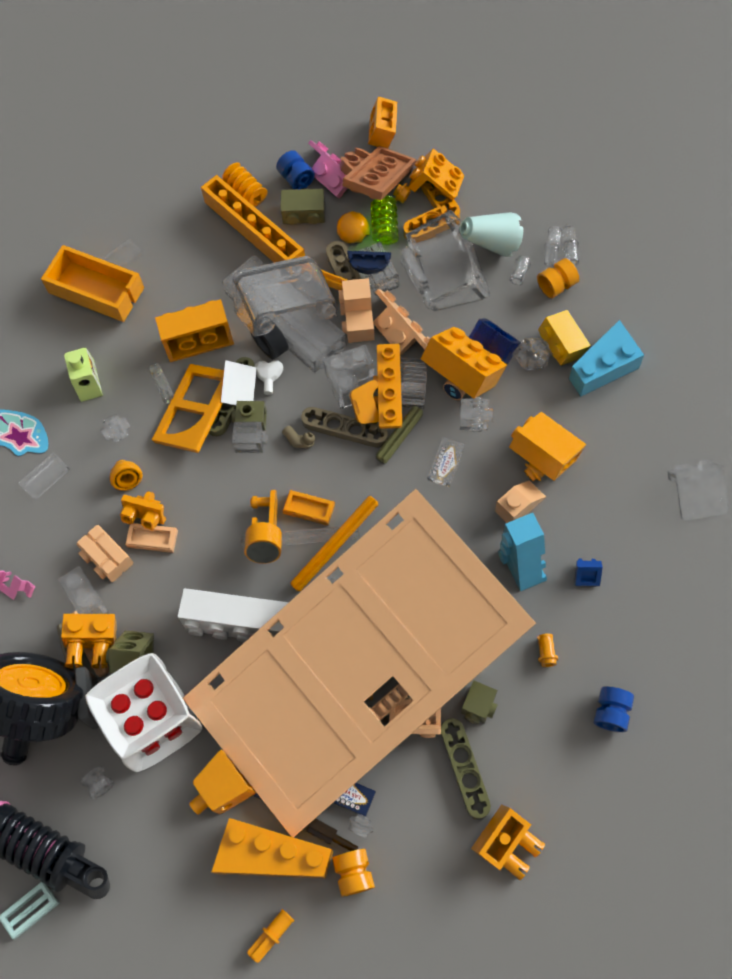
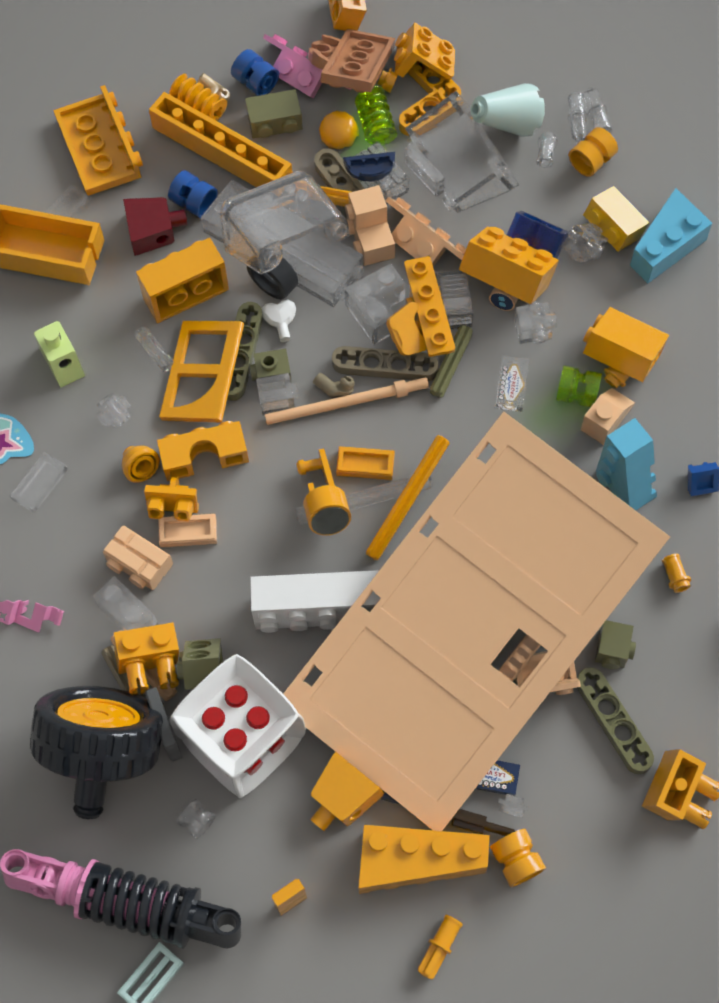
camera: 15 degrees left, 0 degrees up
(152, 866) = (289, 896): none -> light orange tile
(158, 208) = (99, 142): none -> light orange bracket
(159, 471) = (180, 450): none -> light orange arch
(183, 280) = (151, 223): none -> dark red torso
(220, 260) = (192, 193): none -> blue wheel
(238, 383) = (248, 333): white sticker -> none
(261, 177) = (214, 86): none -> tan arm
(351, 450) = (398, 389): none -> light nougat bar
(492, 470) = (568, 386): none -> clear neon green wheel

